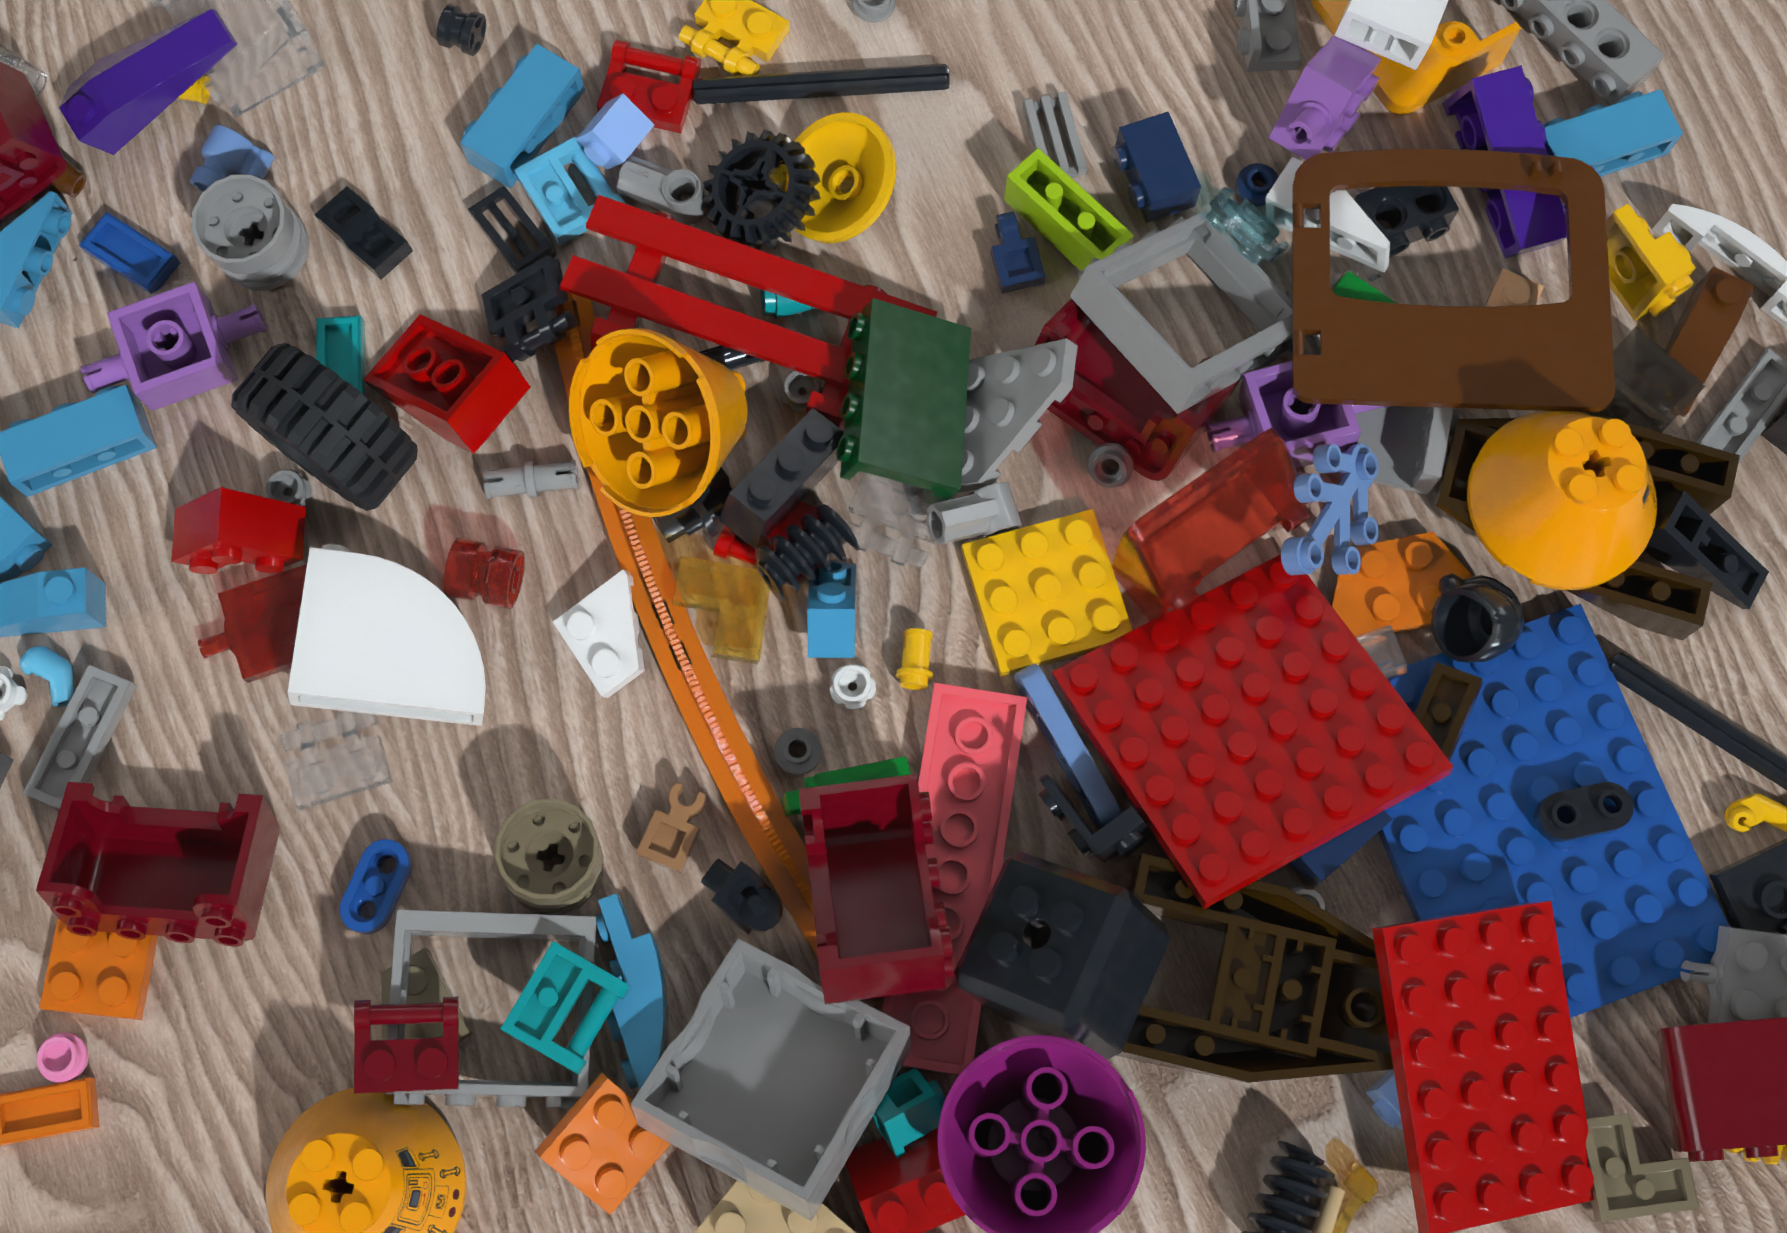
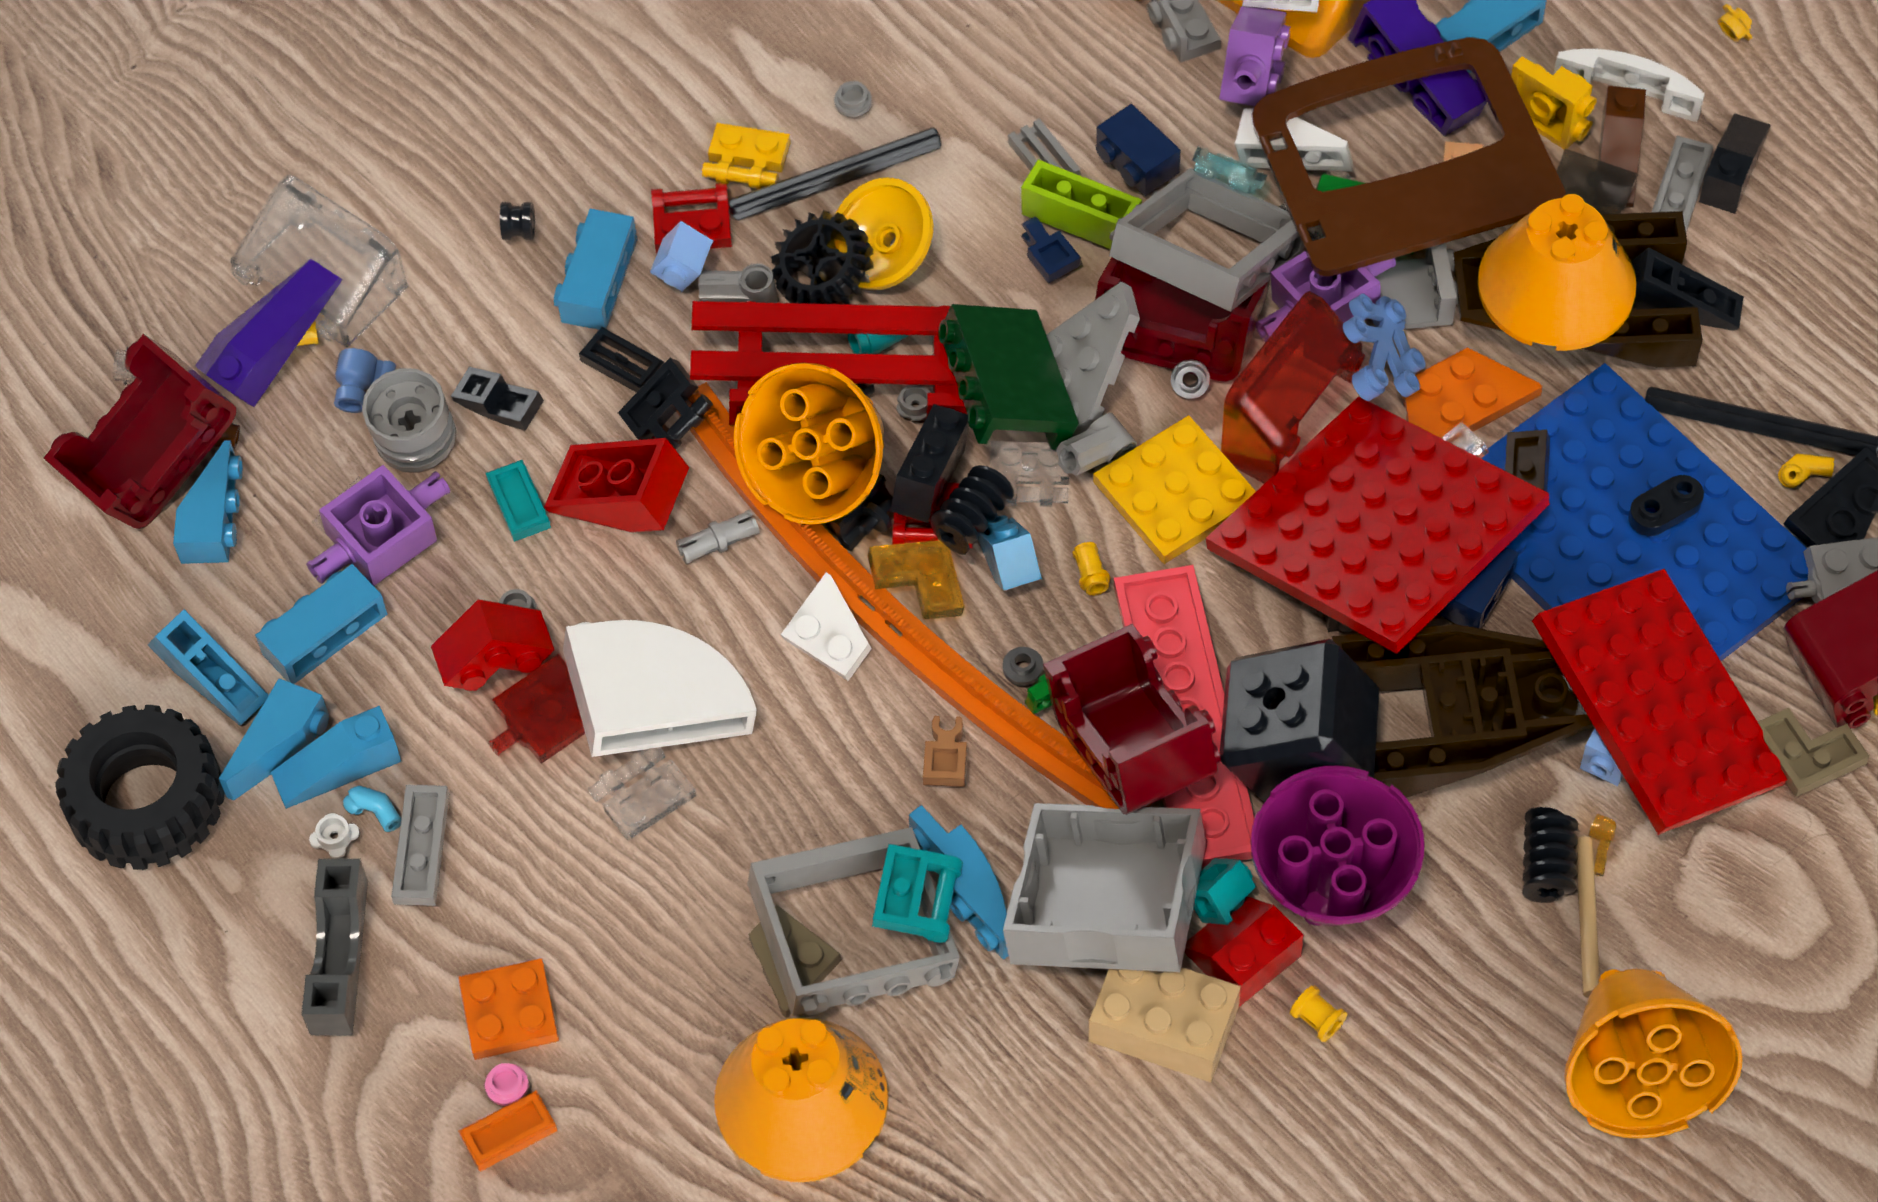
camera: 15 degrees left, 15 degrees down
(129, 253) = (302, 475): blue tile -> none
(159, 868) = (543, 906): dark red windscreen -> none
(325, 426) = (543, 532): black tyre -> none
(371, 885) = (717, 876): blue plate -> none
(406, 1063) = (807, 966): dark red plate -> none
(468, 570) = (696, 607): clear red wheel -> none
(534, 835) = (855, 792): dark tan wheel -> none
(556, 194) = (651, 321): medium azure plate -> none
(602, 1145) = (988, 992): orange plate -> none
(743, 896) = (1024, 774): black hips -> none
(852, 674) = (1047, 595): white plate -> none
(1067, 746) = (1242, 593): medium blue beam -> none
(1119, 836) = (1258, 629): black bracket -> none
(1248, 190) = (1214, 142): dark blue plate -> none
(1409, 222) = (1356, 120): black brick -> none
(1475, 618) = (1525, 393): black piece -> none

